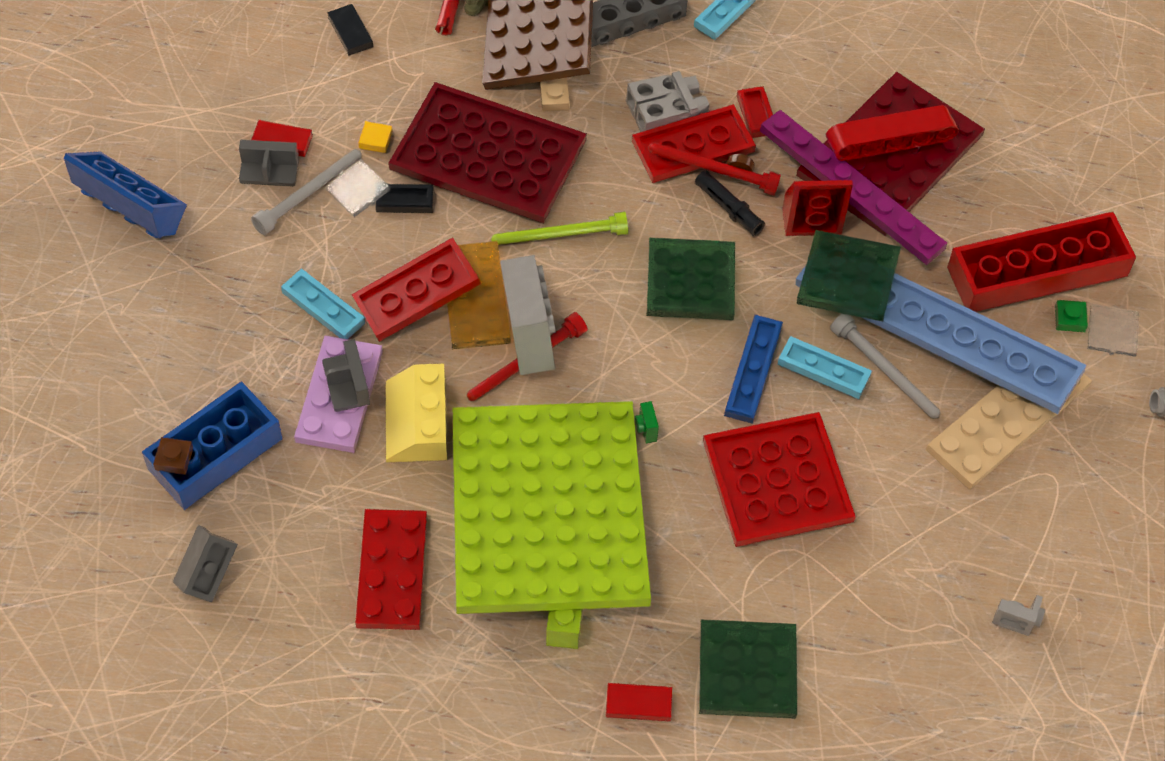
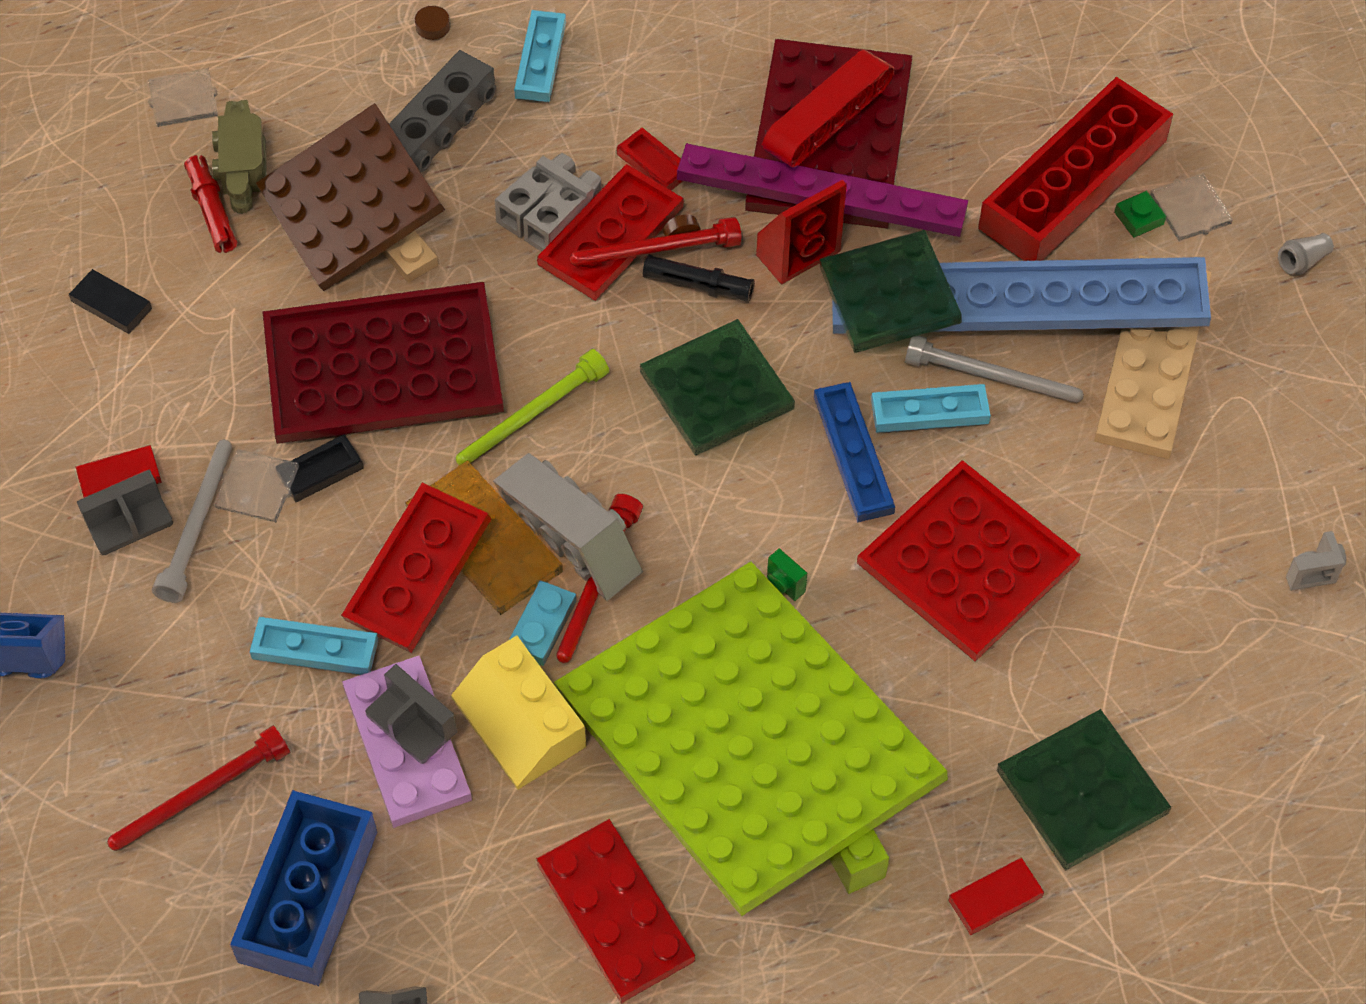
camera: 30 degrees left, 0 degrees up
(173, 455) = (275, 926): reddish brown plate -> none
(252, 351) = (267, 747): none -> red piece
(375, 137) = (233, 413): yellow tile -> none
(473, 367) = (544, 619): none -> medium azure plate

